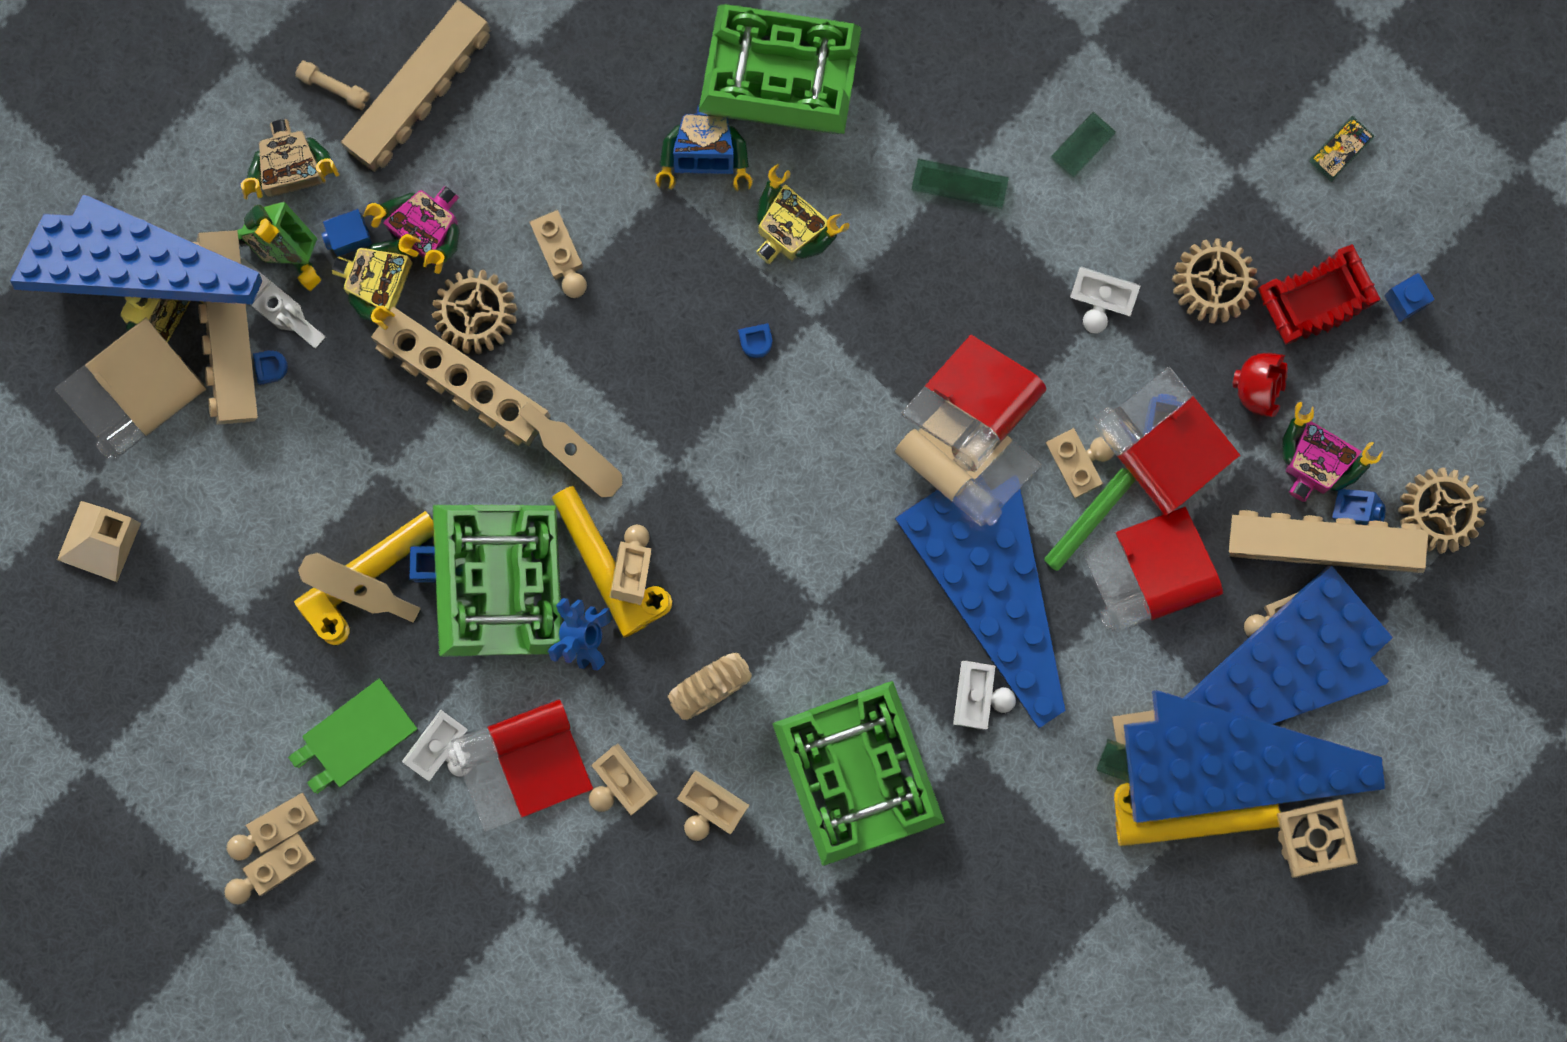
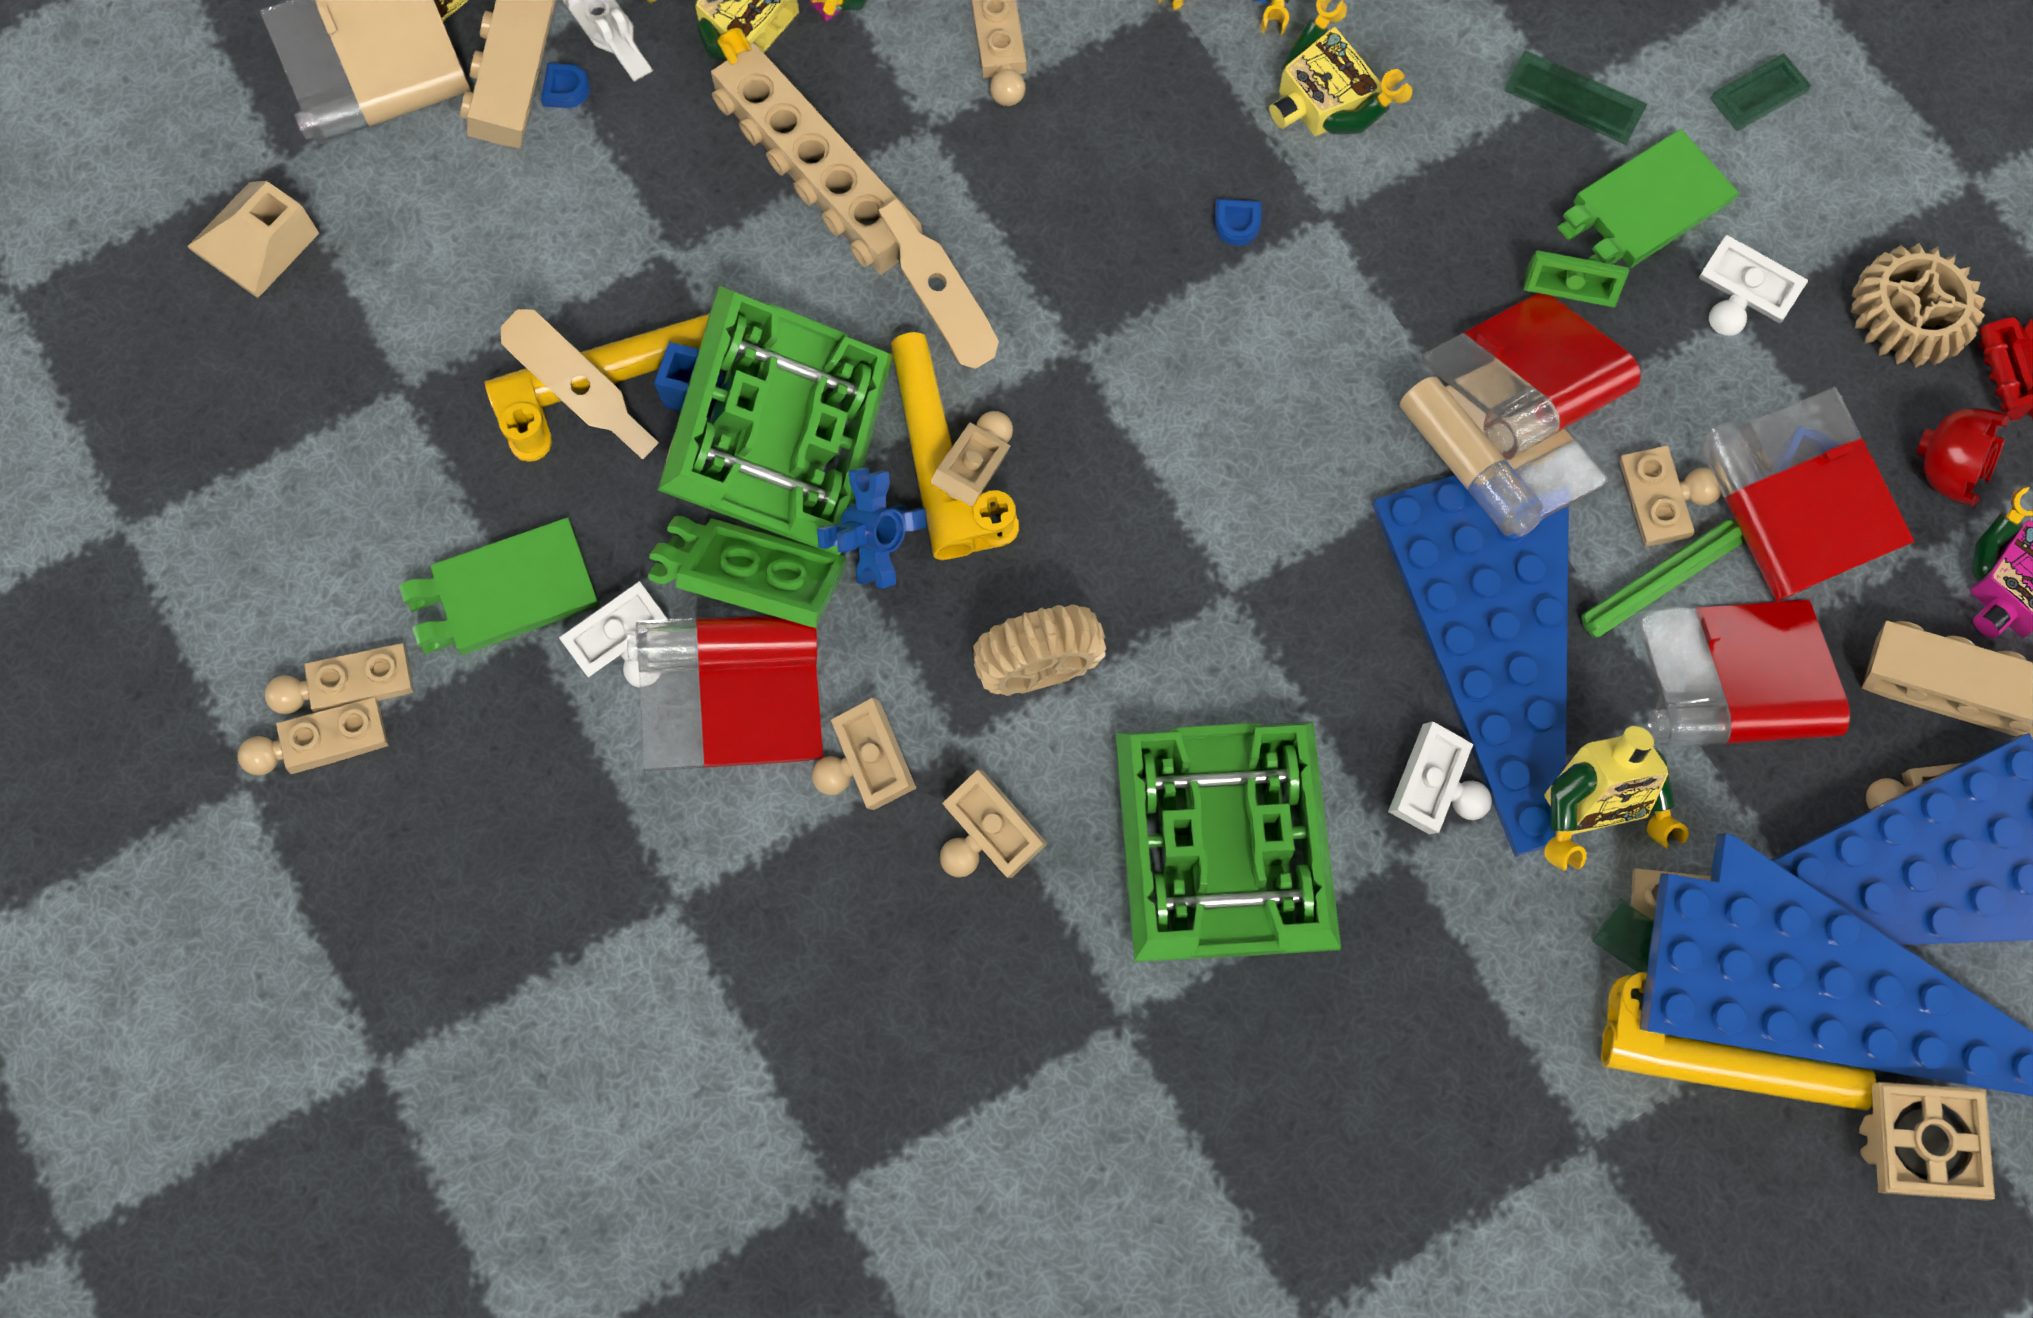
camera: 15 degrees right, 10 degrees down
(460, 307) = (867, 97): tan gear -> none
(508, 683) = (748, 569): none -> bright green tile
(988, 326) = (1575, 278): none -> bright green slope
(1026, 249) = (1649, 201): none -> bright green tile
(1083, 674) = (1609, 786): none -> torso

